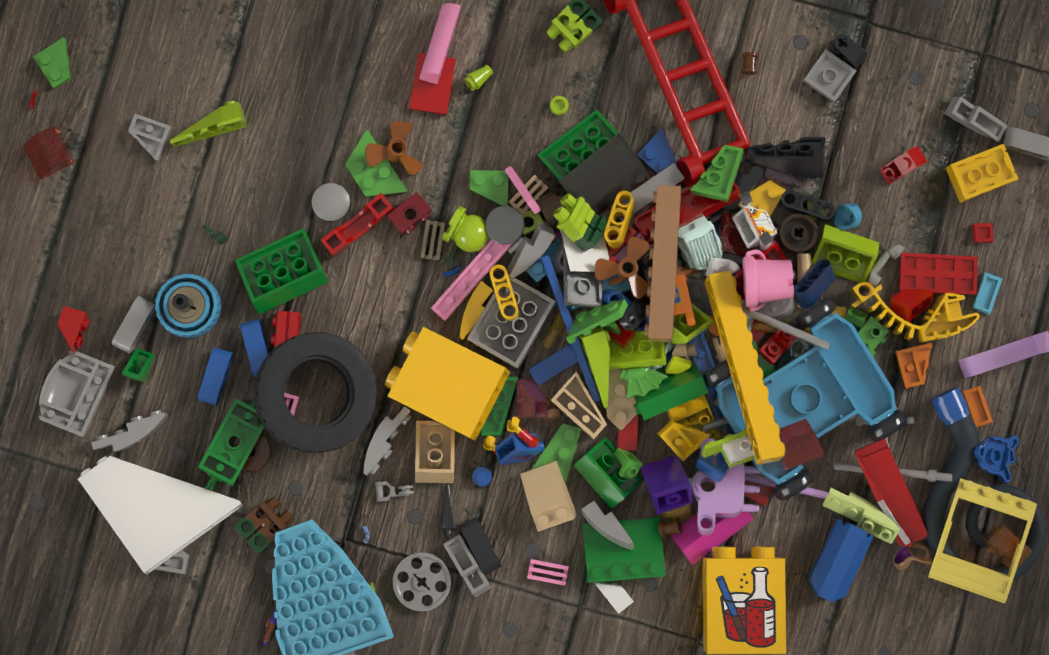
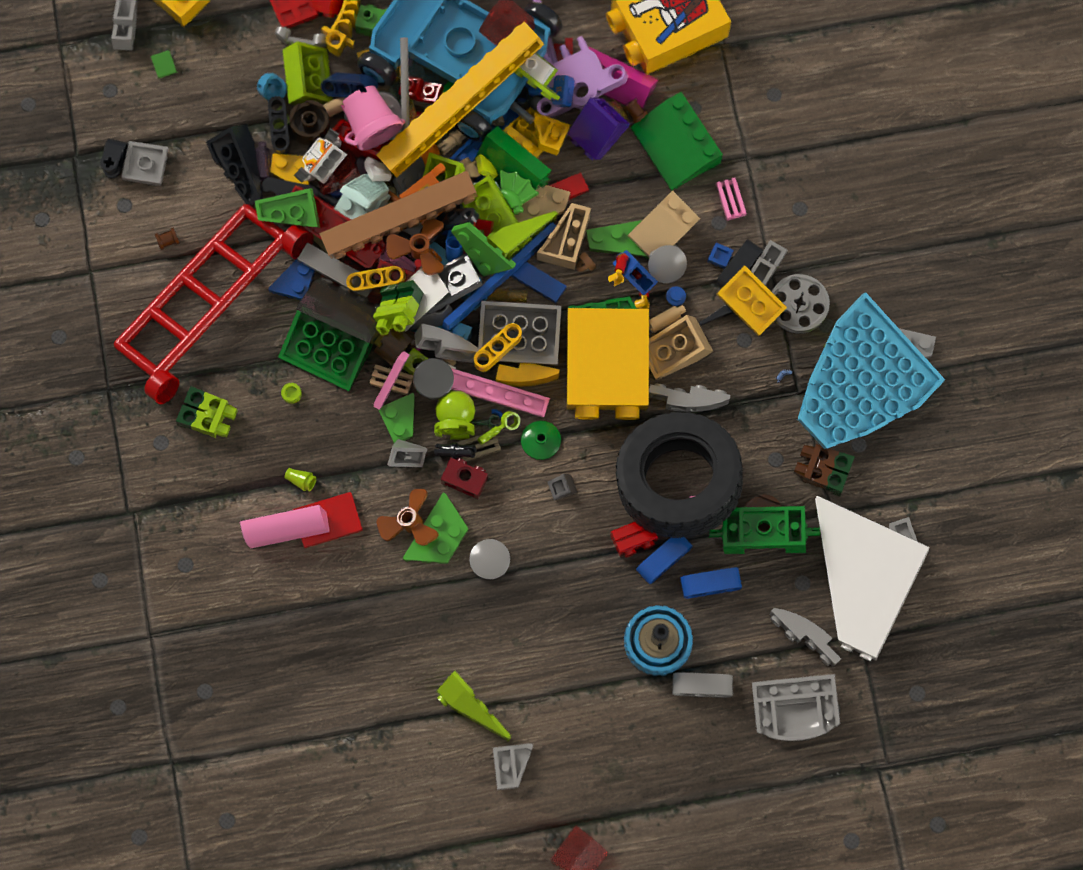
camera: 115 degrees left, 10 degrees down
(72, 326) = (736, 741): red slope -> none
(139, 365) = (739, 659): green slope -> none
(219, 237) = (576, 646): clear green hand -> none
(270, 624) = (913, 418): copper piece -> none
(281, 271) = (579, 571): green slope -> none
(356, 227) = (513, 526): red arch -> none
(362, 294) = (562, 486): none -> flat silver slope
(379, 491) = (725, 356): light grey piece -> none
(413, 306) = (541, 449): none -> green dish
(436, 217) = (455, 450): none -> black pin
(437, 260) = (496, 430): none -> lime piece
(441, 537) = (751, 300): none -> yellow plate
(454, 174) = (407, 454): none -> light grey slope
(466, 457) = (666, 318): none -> tan cylinder
(499, 534) = (720, 255): none -> blue plate
(513, 482) = (667, 263): none -> light grey dish
(530, 400) = (584, 283): clear pink slope -> none
(601, 471) = (614, 186): green slope -> none
(607, 525) = (663, 162): light grey slope -> none
(615, 595) = (720, 129): white slope -> none
(629, 463) = (595, 170): bright green bracket -> none
(856, 317) = (361, 40): bright green tile -> none
(903, 165) = (199, 62): red slope -> none
(916, 134) = (163, 64): none -> bright green slope

